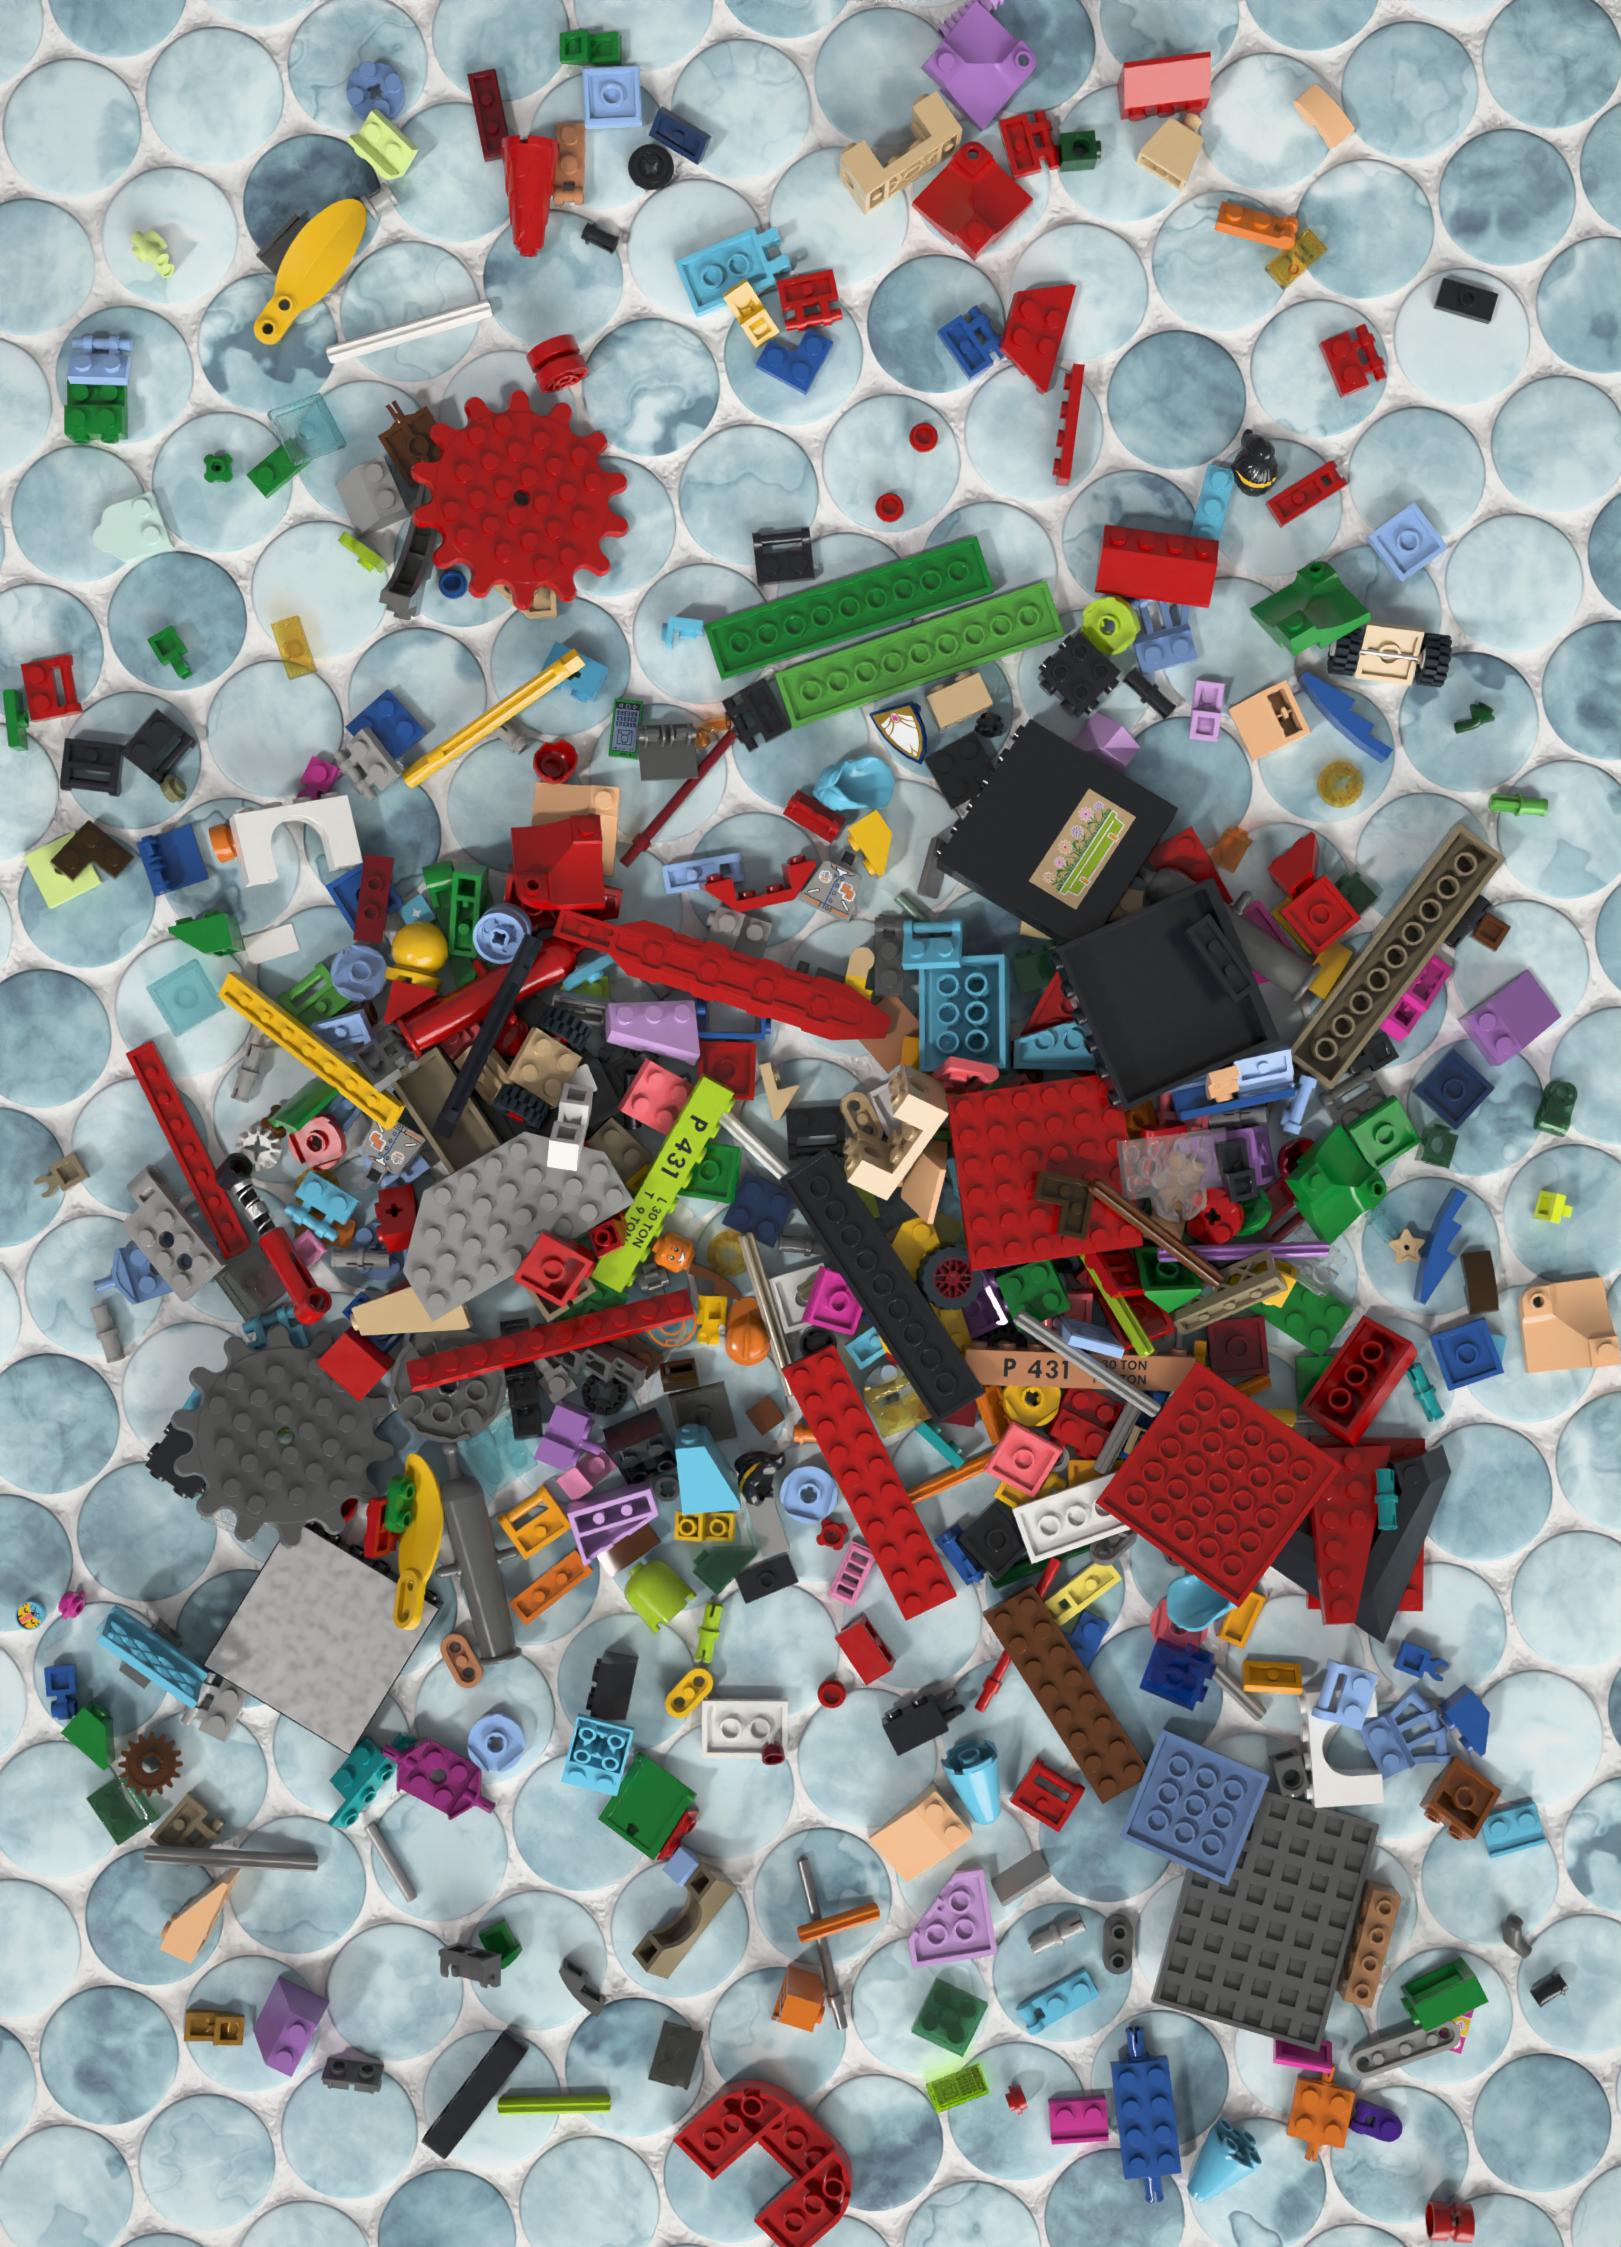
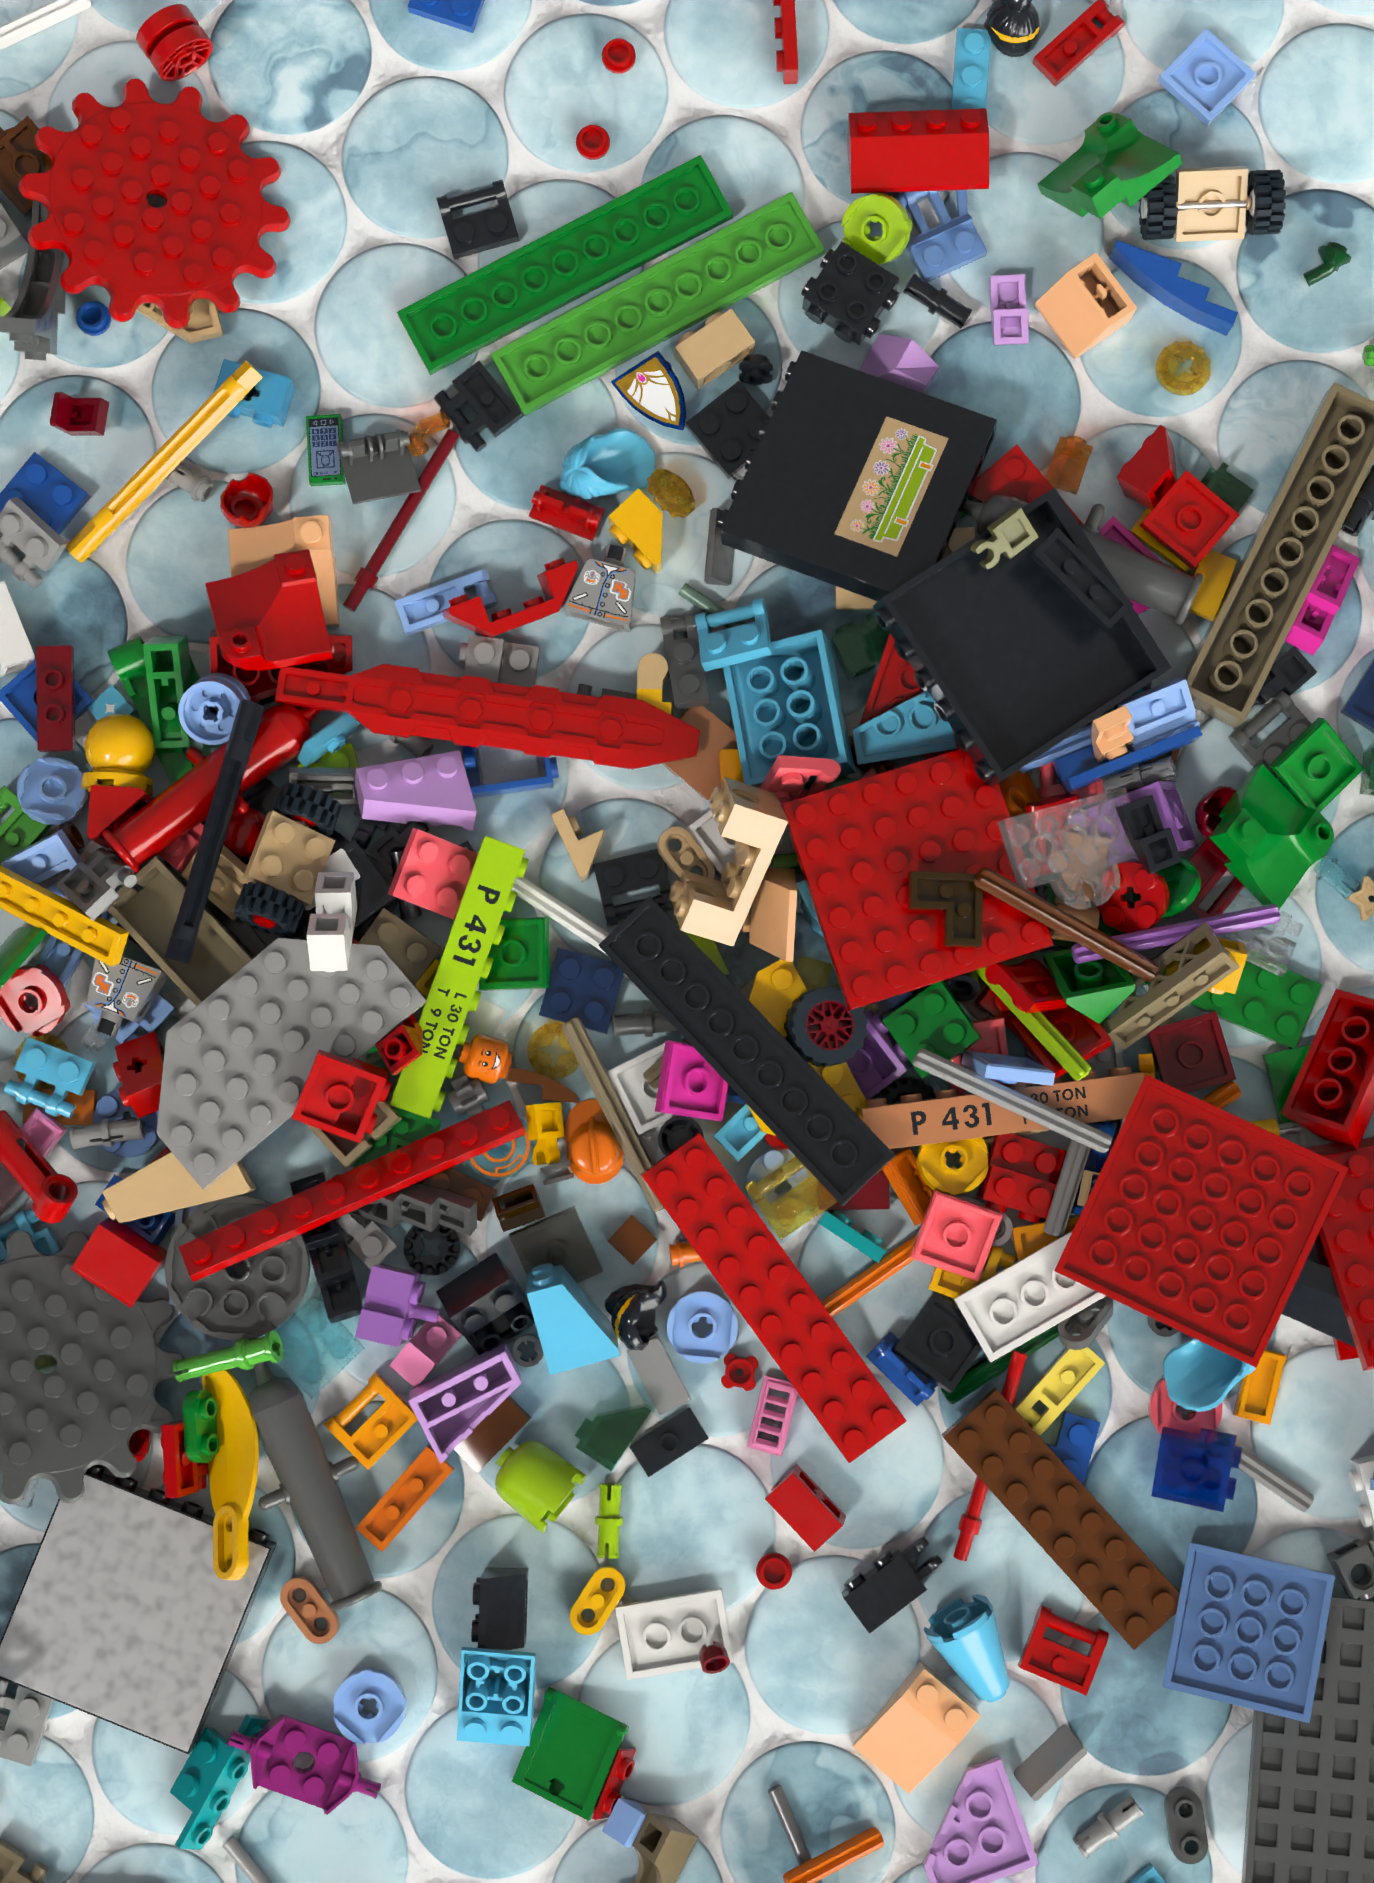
camera: 15 degrees left, 5 degrees down
(429, 665) = (79, 415): none -> dark red bracket
(442, 1454) = (243, 1355): none -> bright green pin
(686, 628) = (376, 318): medium azure bracket -> none
(705, 1526) = (582, 1389): yellow slope -> none
(714, 1352) = (557, 1172): none -> dark grey bush
(731, 1065) = (518, 822): red plate -> none
(902, 816) = (671, 493): none -> clear yellow gear
(1168, 914) = (1009, 536): none -> plate
(1271, 1677) = (1312, 1453): light orange plate -> none
(1291, 1117) = (1203, 766): light blue plate -> none

